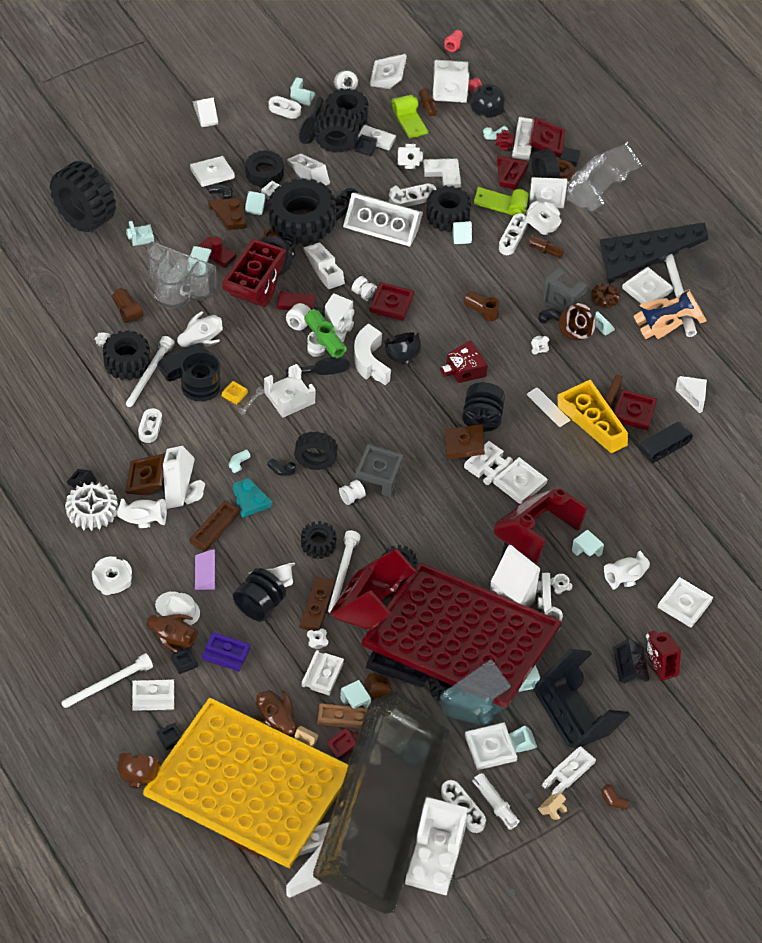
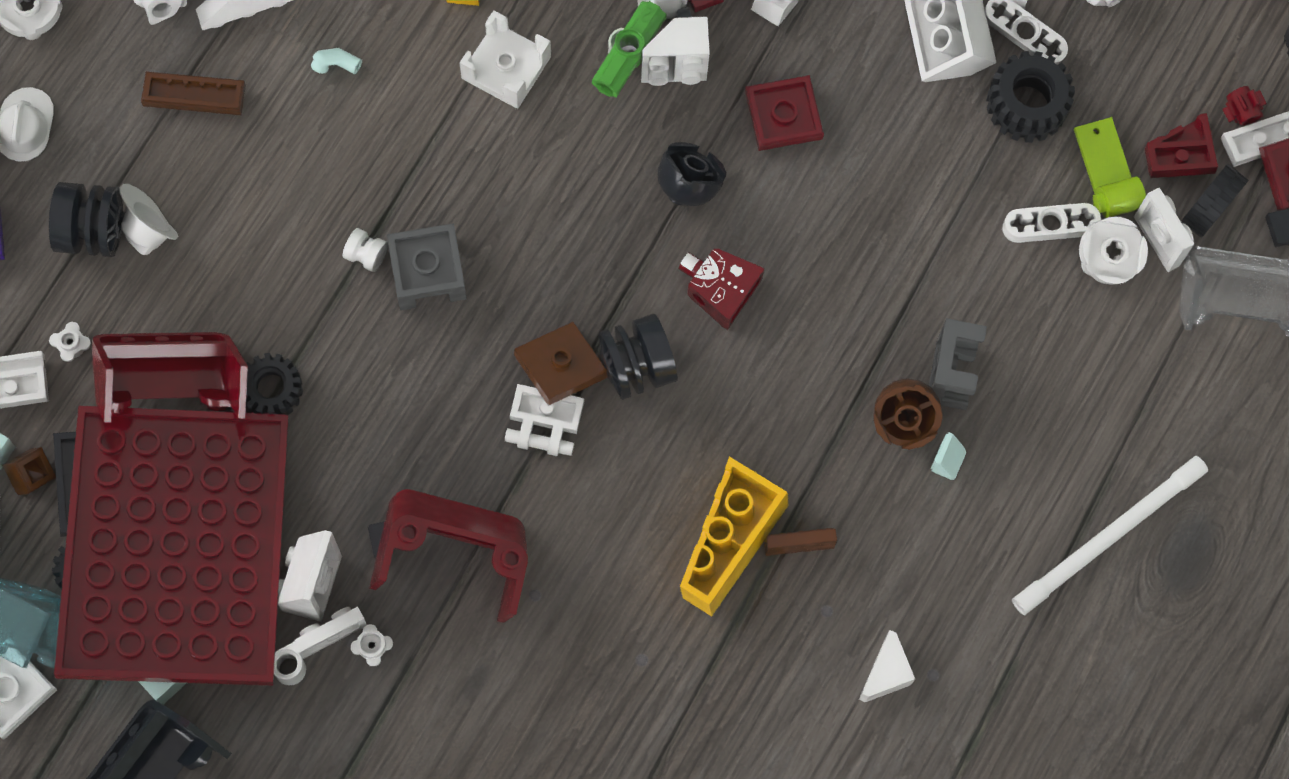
camera: 60 degrees right, 20 degrees up
(194, 492) = (236, 32): white plate -> none
(205, 570) = (108, 125): lavender slope -> none
(250, 497) = (270, 113): teal wing -> none
(259, 391) = (435, 16): clear hinge -> none
(282, 470) = (354, 127): black arm -> none
(314, 460) = (400, 156): black tyre -> none
(317, 604) = (134, 309): reddish brown plate -> none
(318, 548) = (246, 230): black tyre -> none
(326, 366) = (604, 105): black piece -> none
(351, 540) = (273, 296): white piece -> none
(365, 289) = (781, 58): white wheel -> none
(365, 344) = (654, 120): white arch -> none
(443, 167) = (1124, 52): white plate -> none
(462, 232) = (997, 144): light aqua slope -> none
(487, 306) = (862, 249): reddish brown piece -> none
(491, 135) = (1247, 77): light aqua arm -> none
(520, 481) = (536, 485): white plate -> none
(523, 739) = (47, 731): light aqua slope -> none
(539, 344) = (835, 378): white plate -> none
(546, 247) = (1055, 286): reddish brown axle -> none
(548, 314) = (912, 362): black arm -> none
(548, 407) = (726, 444): white sticker -> none
(568, 168) = (1258, 225): reddish brown gear -> none
(588, 543) = (461, 650): light aqua panel -> none
(610, 300) = (1005, 441): reddish brown gear -> none
(626, 570) = (444, 735): white animal -> none
(635, 409) = (792, 592): dark red plate -> none
(644, 249) = (1148, 441): black wing -> none
(647, 286) = (1072, 489): white plate -> none
(665, 442) = (752, 674): black beam -> none
(672, 309) = (1003, 539): light nougat hips -> none

